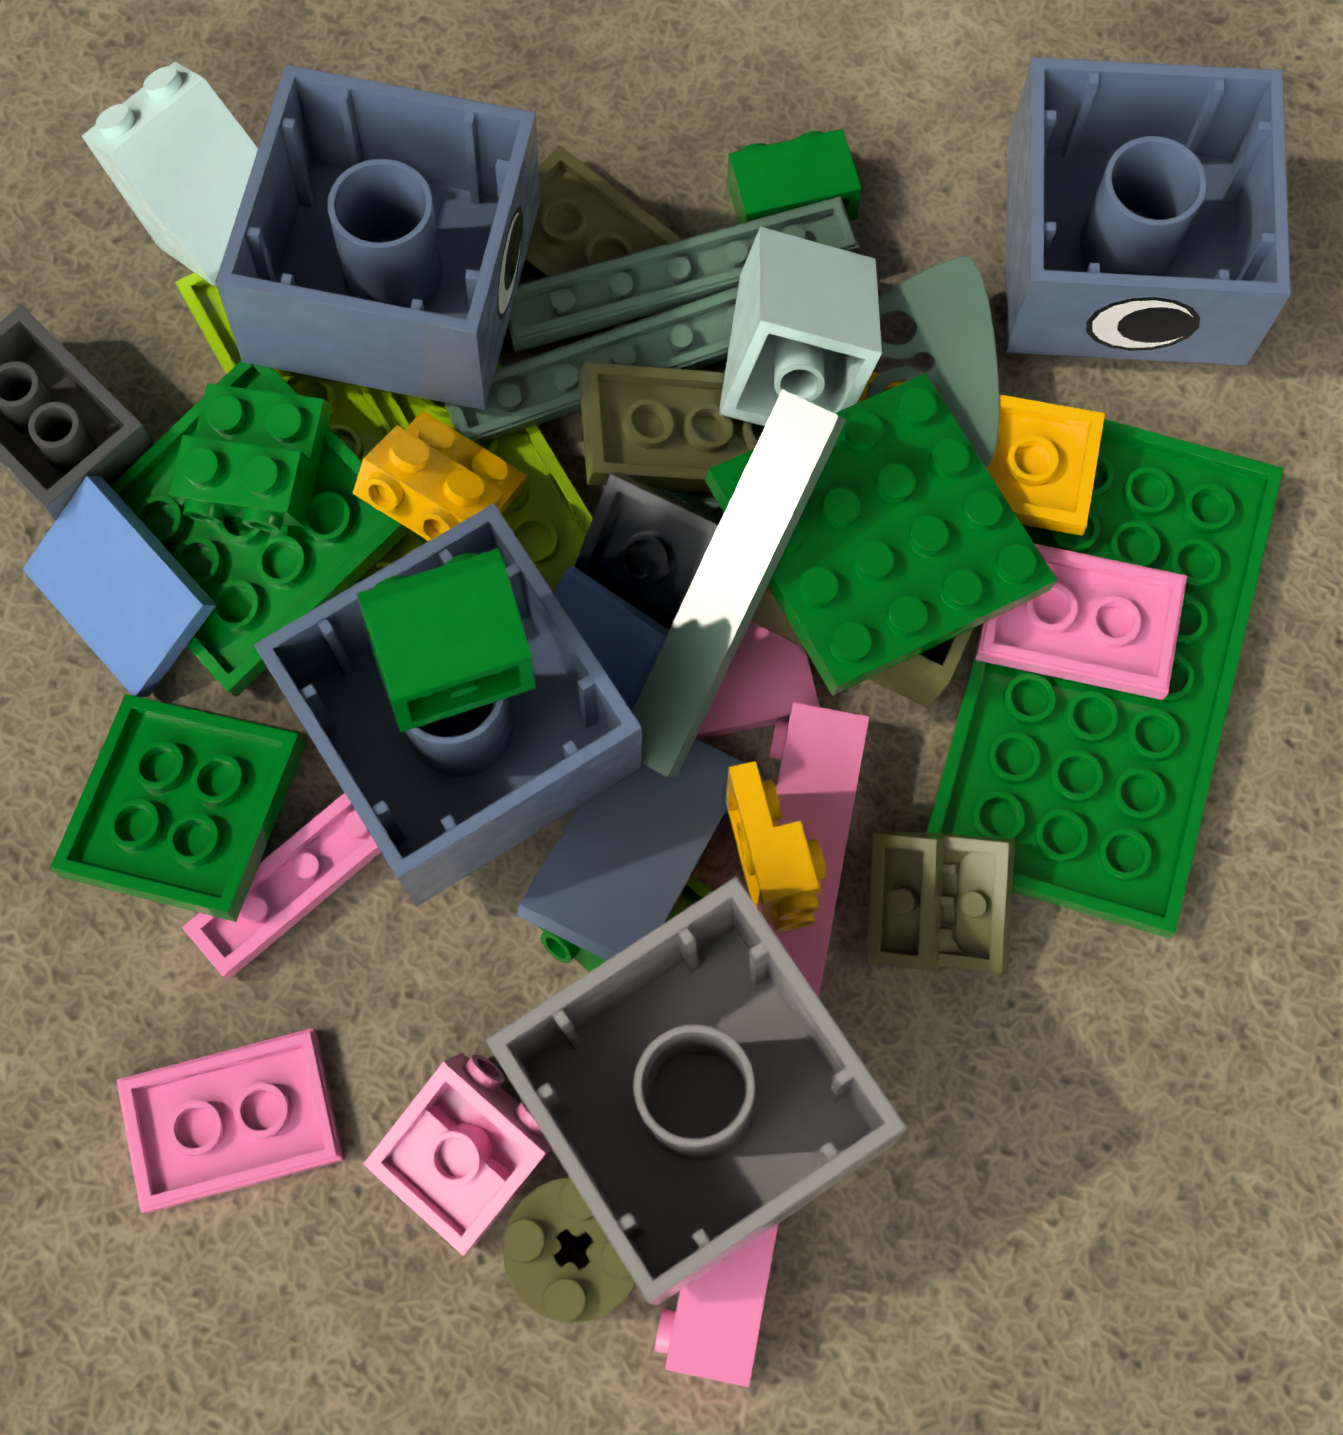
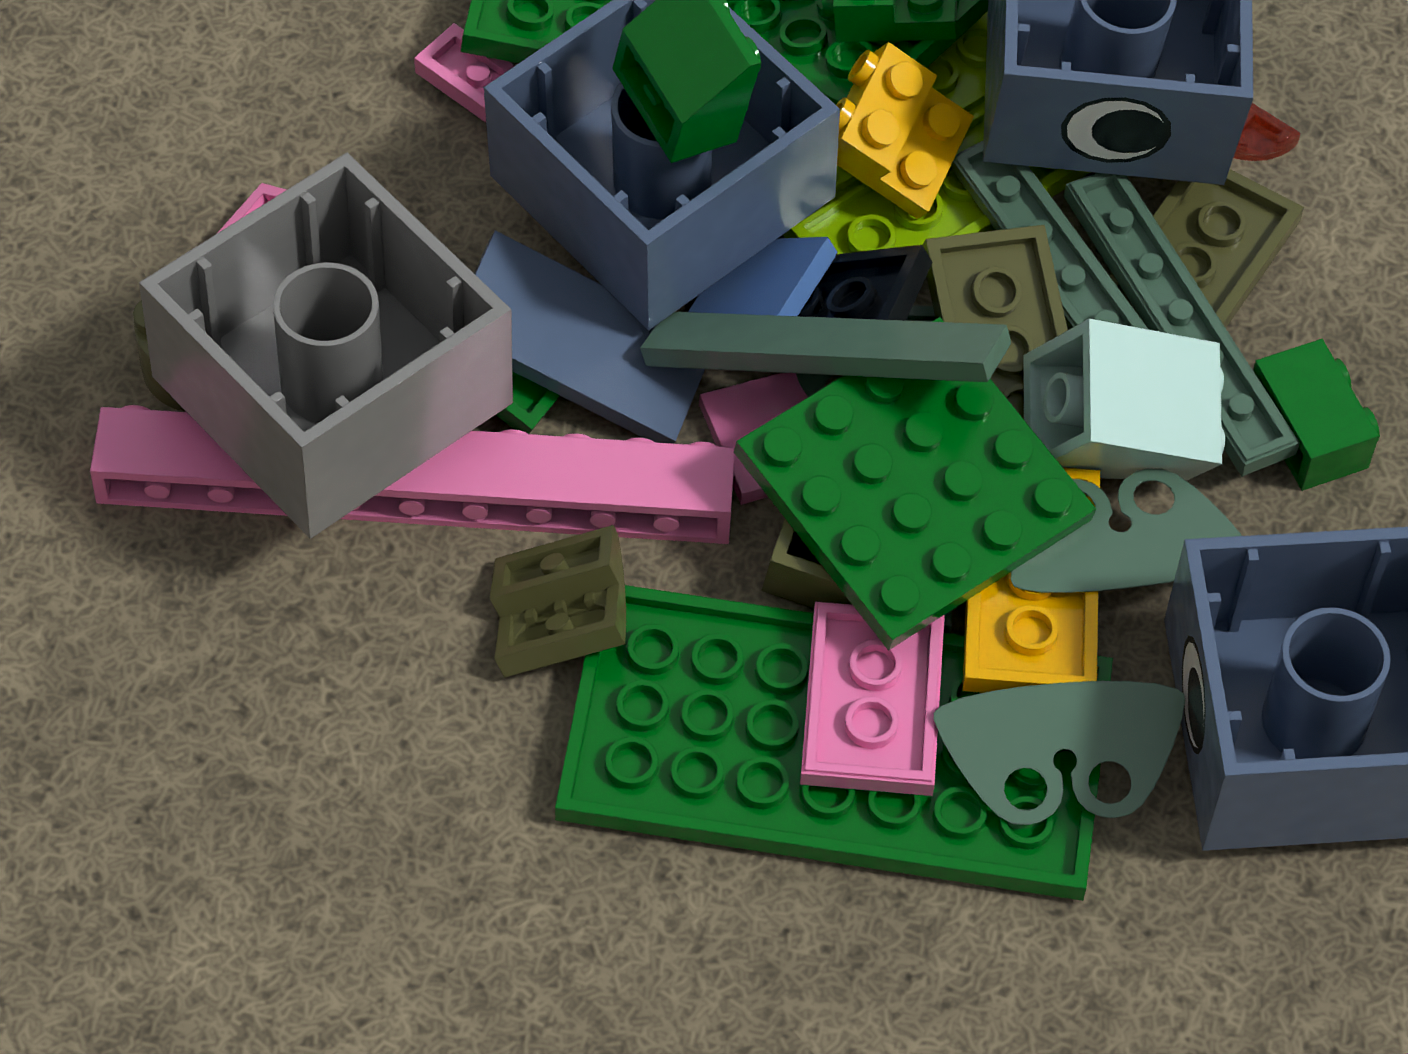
camera: 80 degrees right, 15 degrees down
(229, 1120) = (292, 92): bright pink tile -> none
(776, 860) = (564, 399): yellow plate -> none
(1134, 426) = (1028, 724): none -> sand green piece

